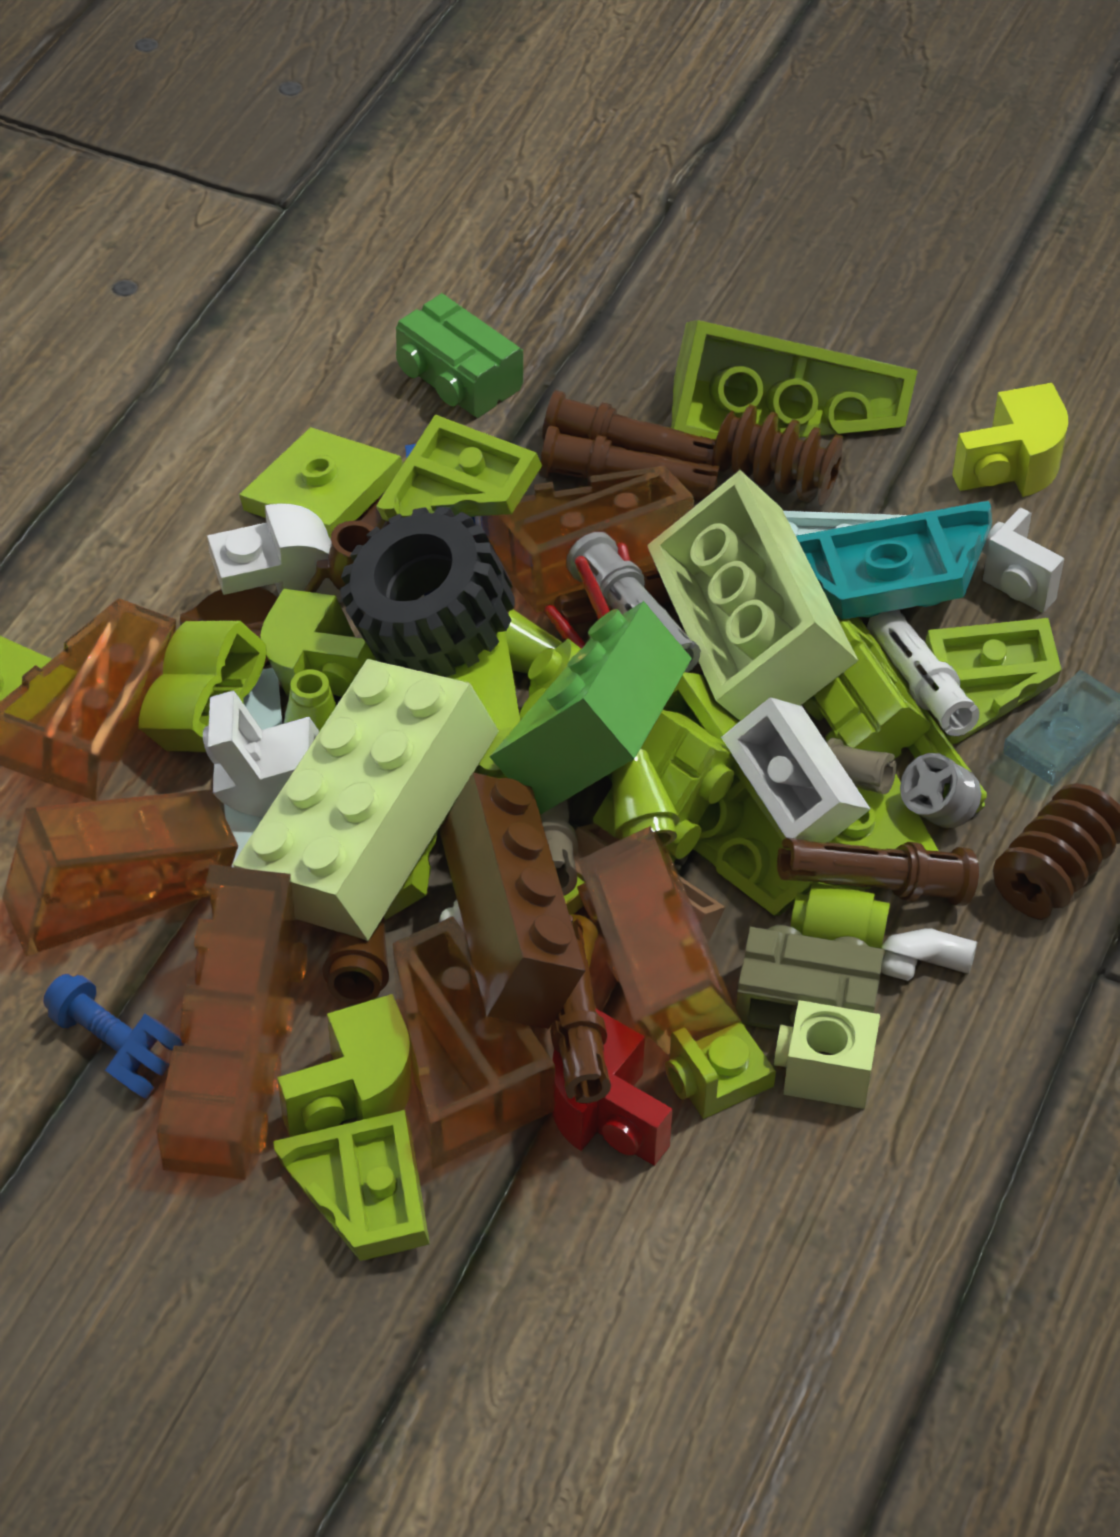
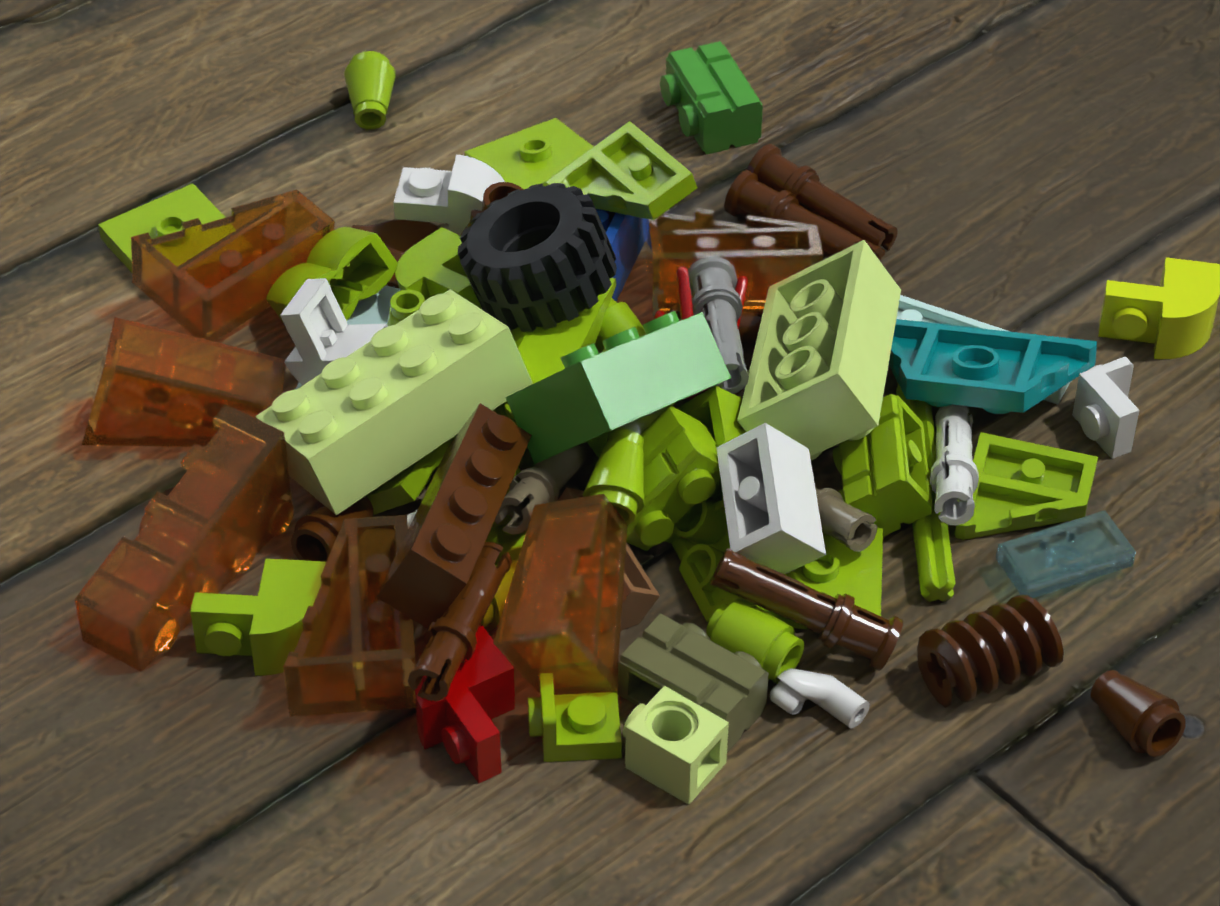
camera: 25 degrees right, 5 degrees down
(73, 1001) = (87, 488): blue hinge -> none
(96, 453) = (370, 87): none -> lime cone
(362, 1182) = (224, 704): lime wing -> none
(778, 455) = (938, 252): reddish brown piece -> none
(820, 388) = (963, 199): lime wedge -> none
(924, 785) = (906, 564): light grey wheel -> none

